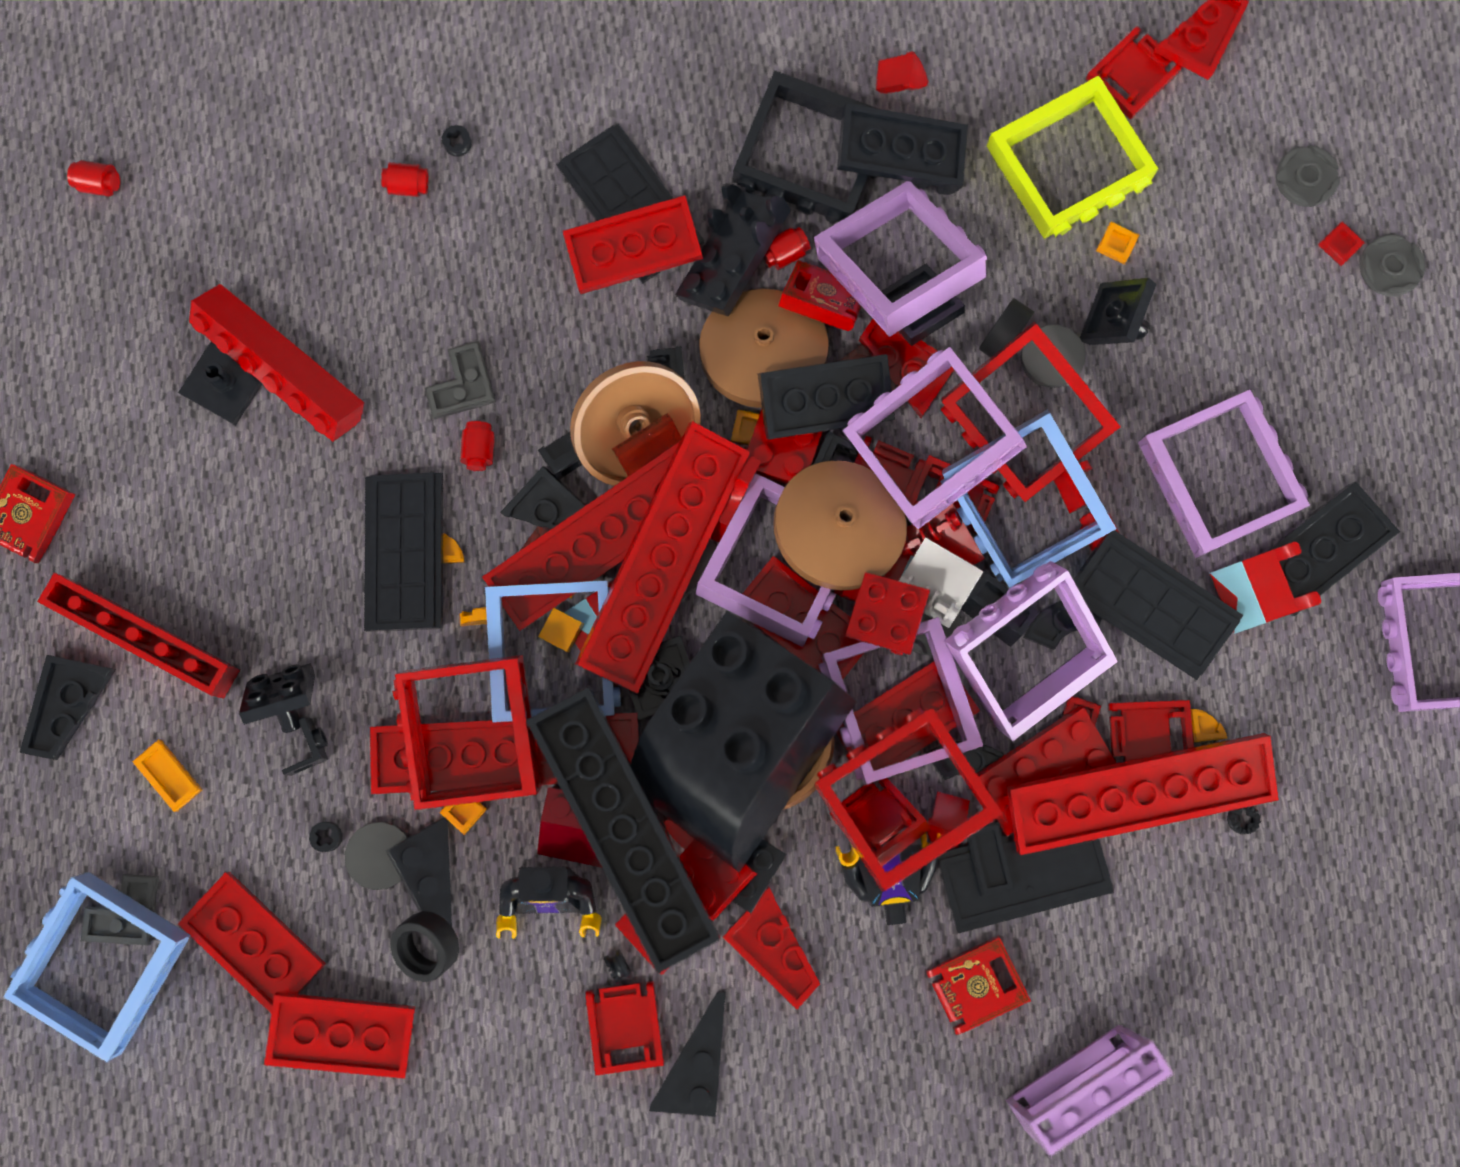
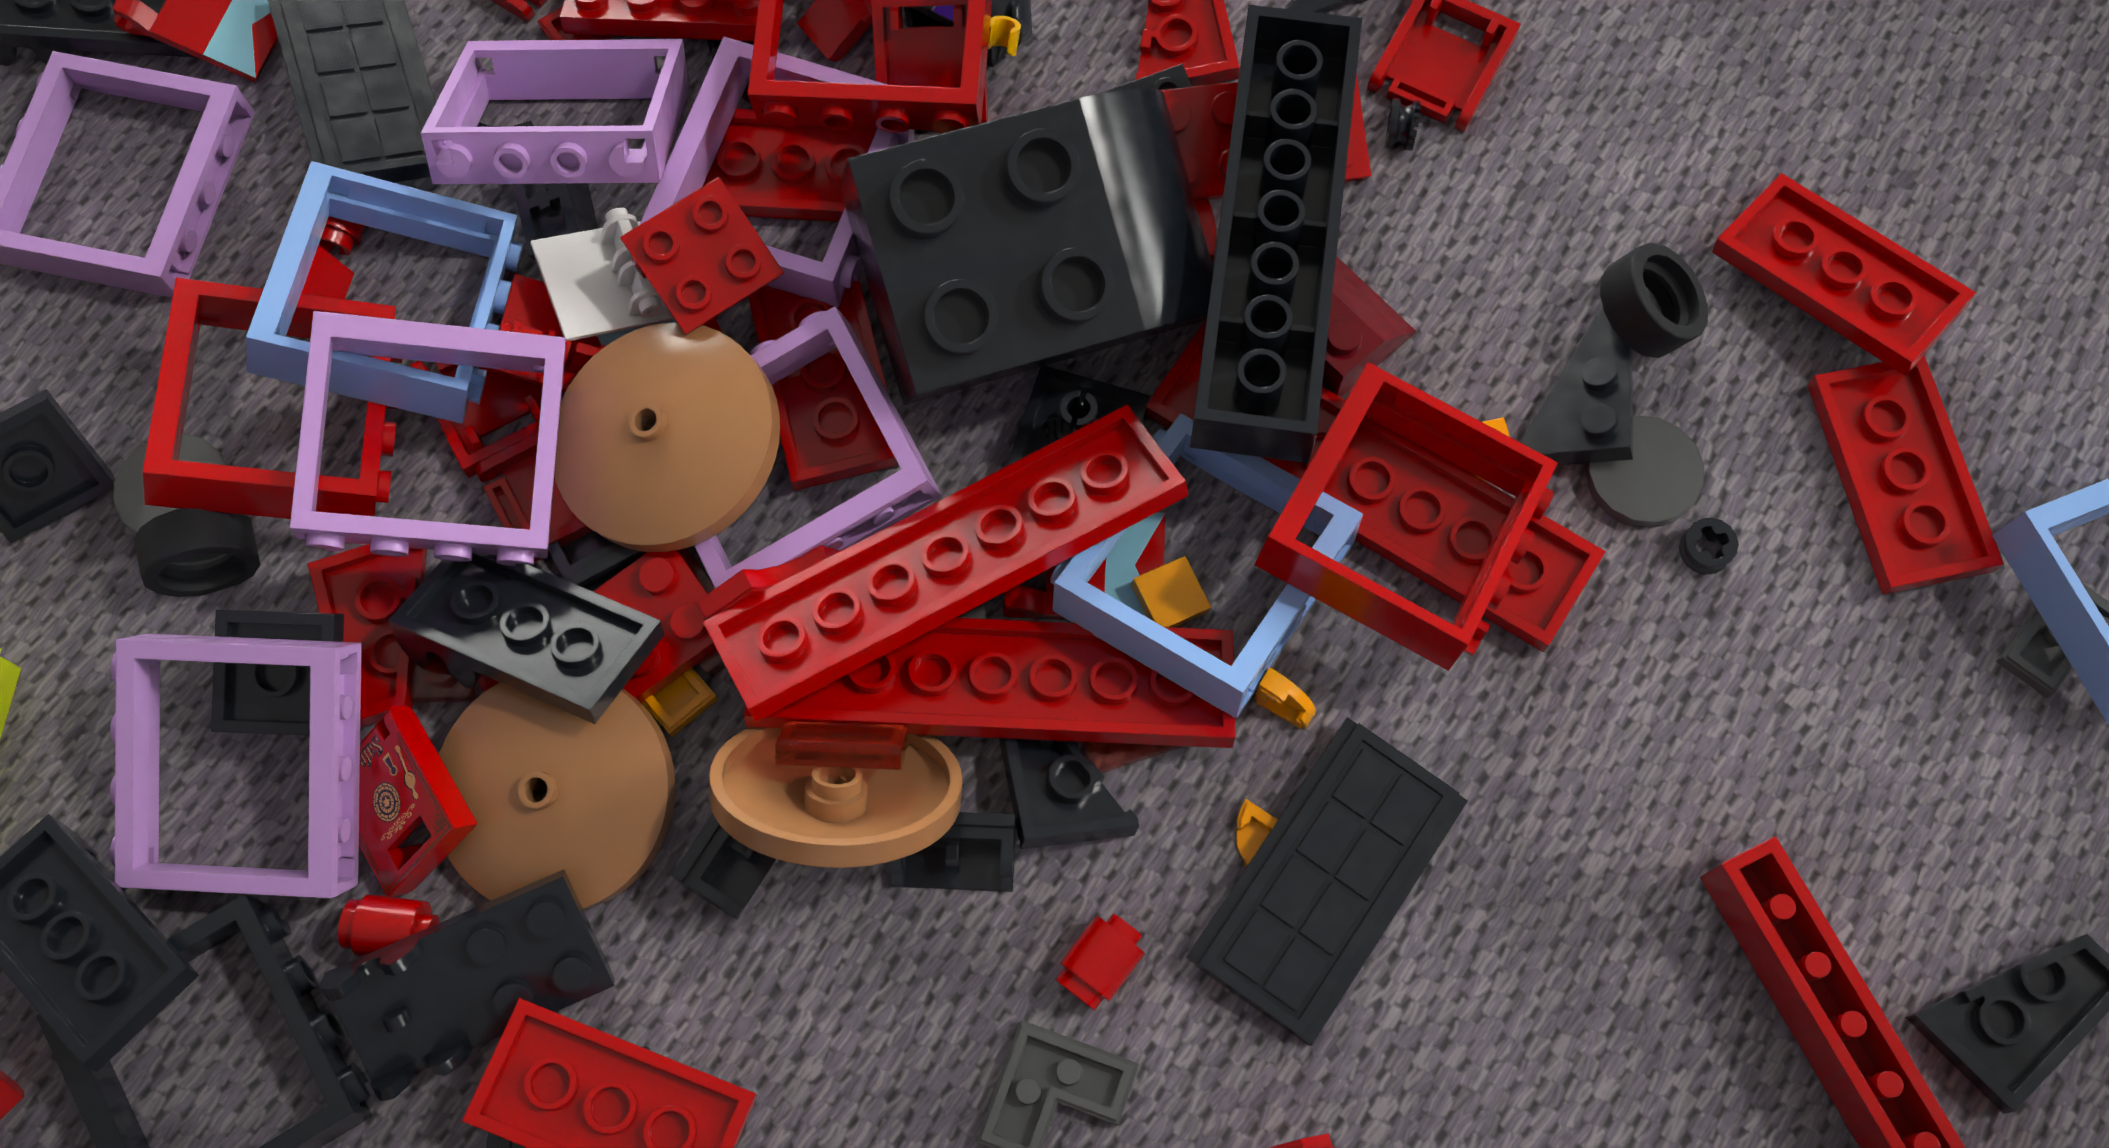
camera: 140 degrees left, 10 degrees down
(167, 775) = (1906, 794): light orange tile -> none
(279, 696) = (1664, 769): black plate -> none
(316, 741) = (1644, 679): black bracket -> none
(547, 892) = (1442, 257): black torso -> none

